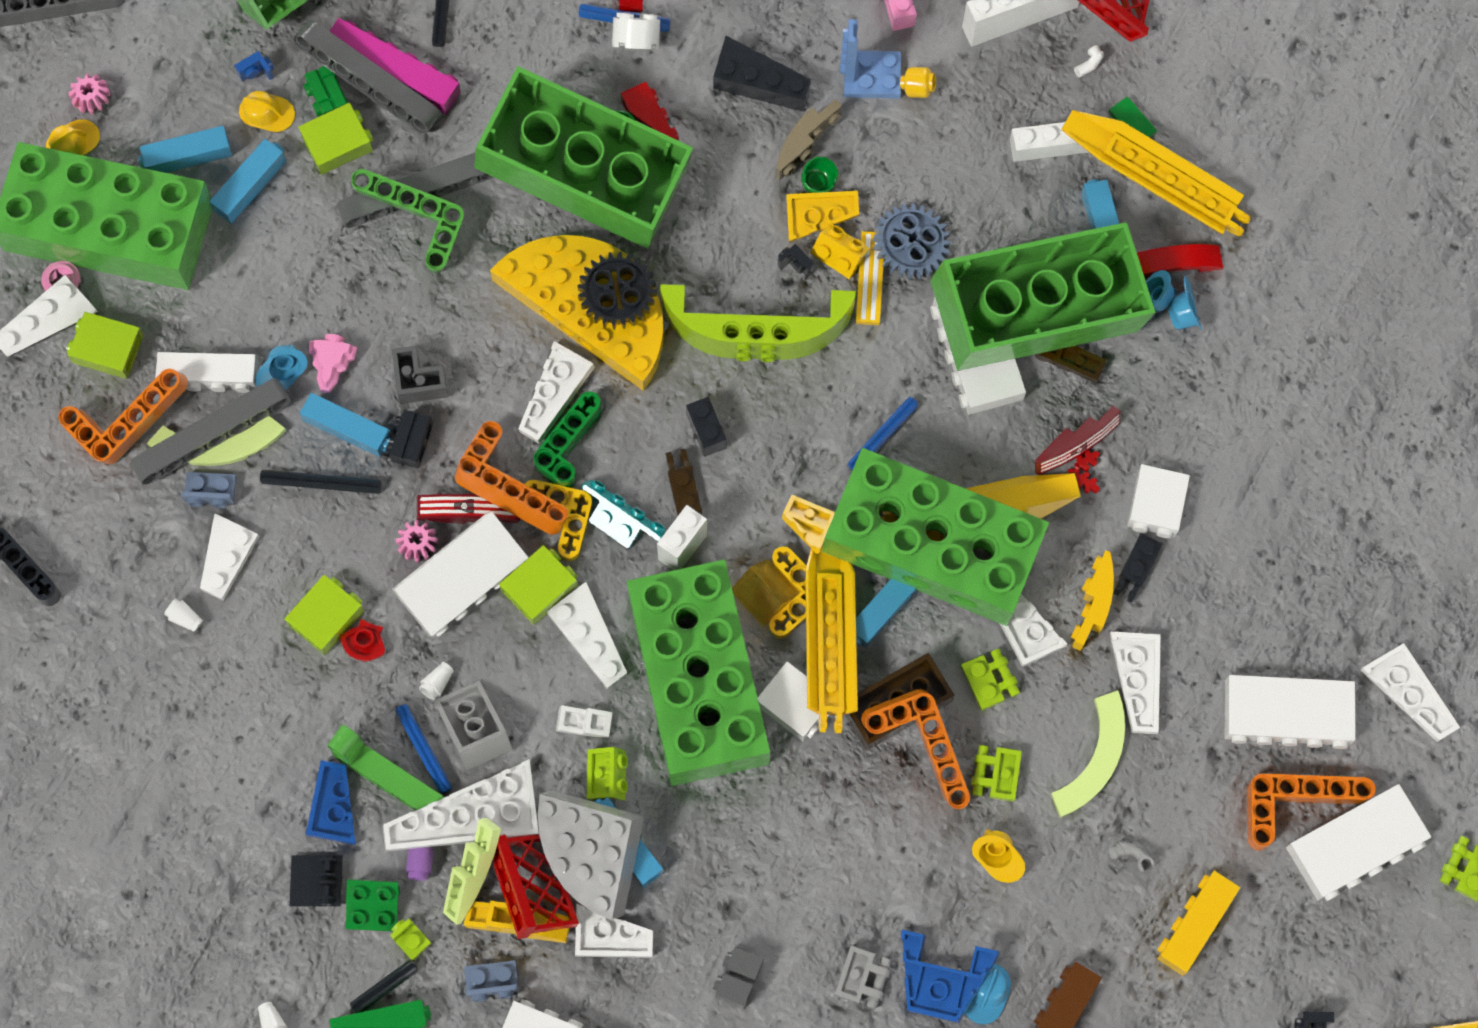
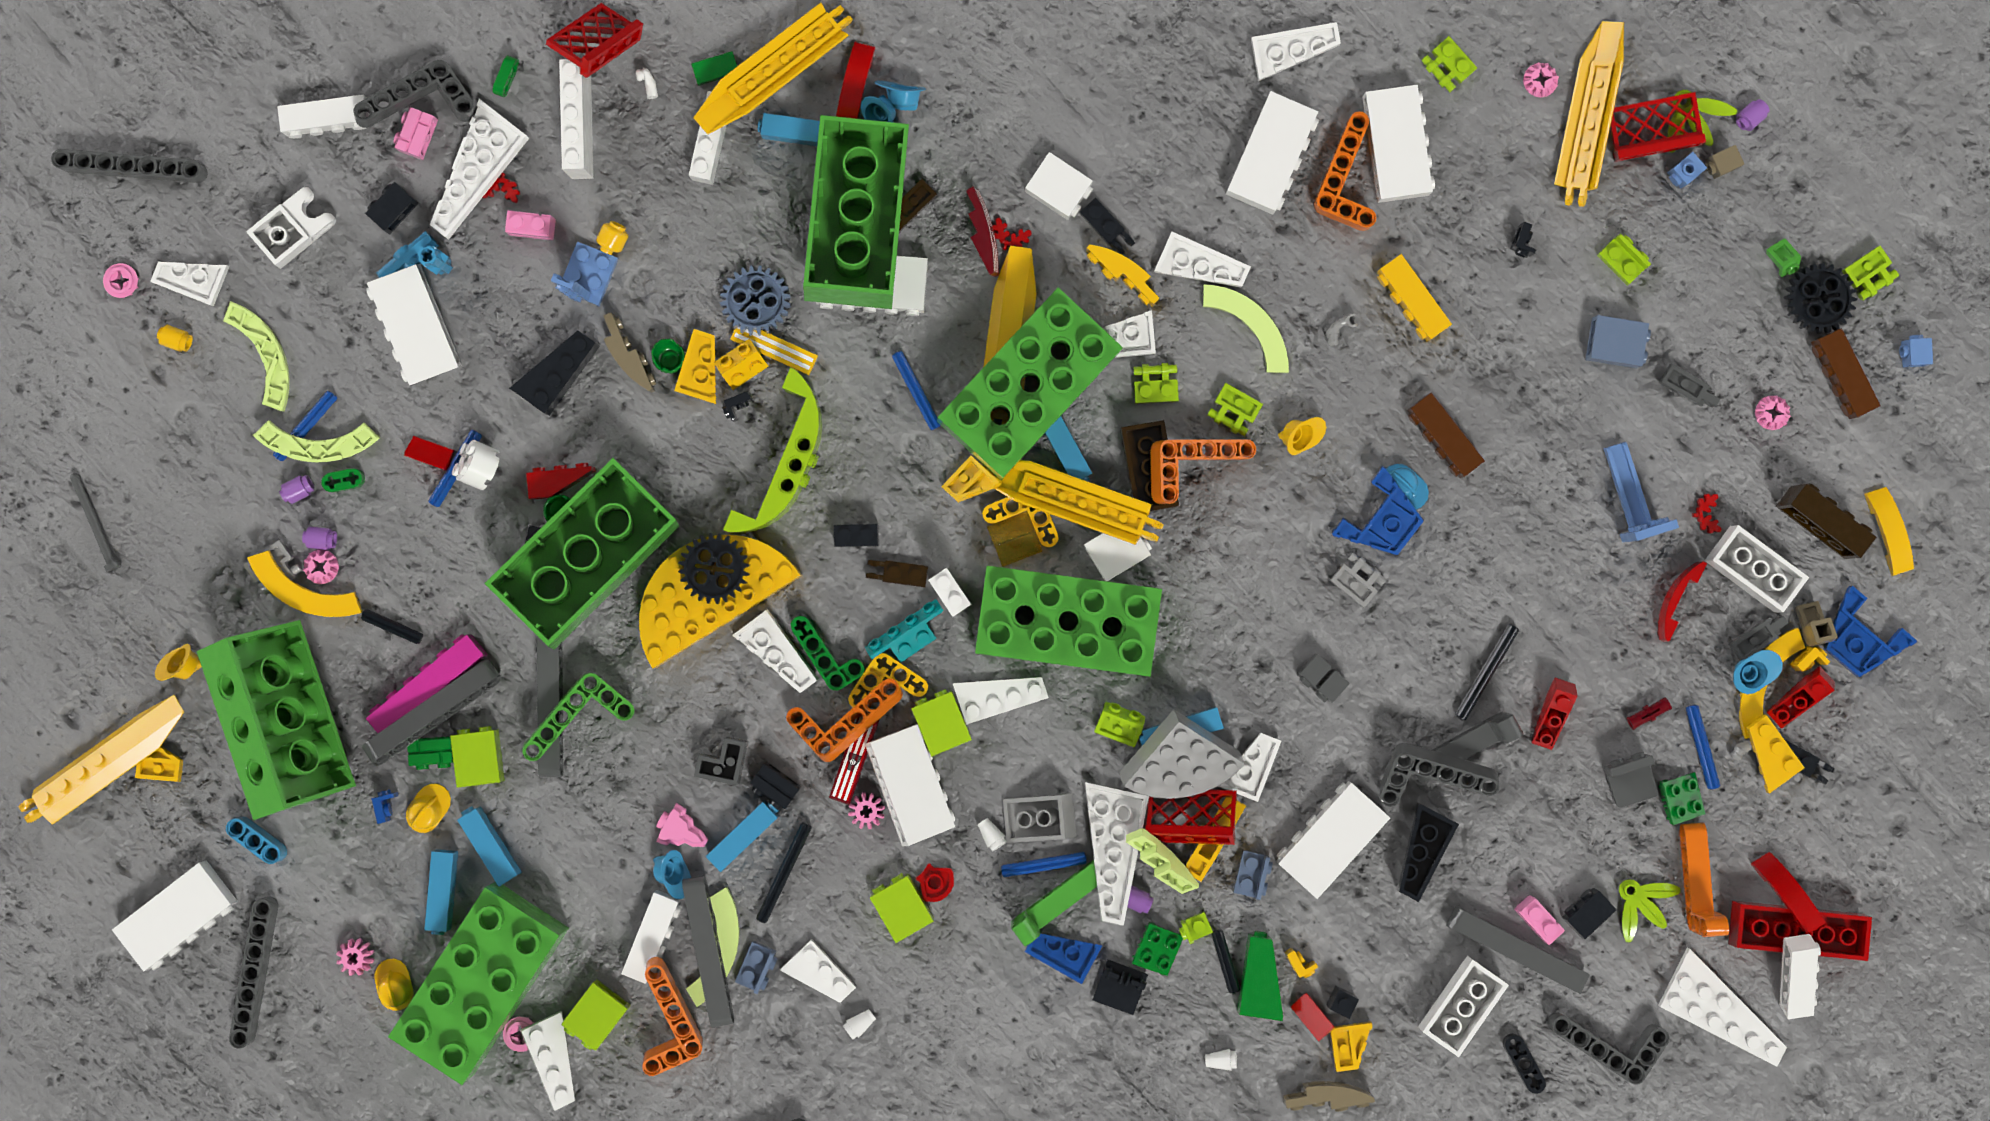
camera: 65 degrees left, 15 degrees up
(584, 722) = (1069, 726): white slope -> none

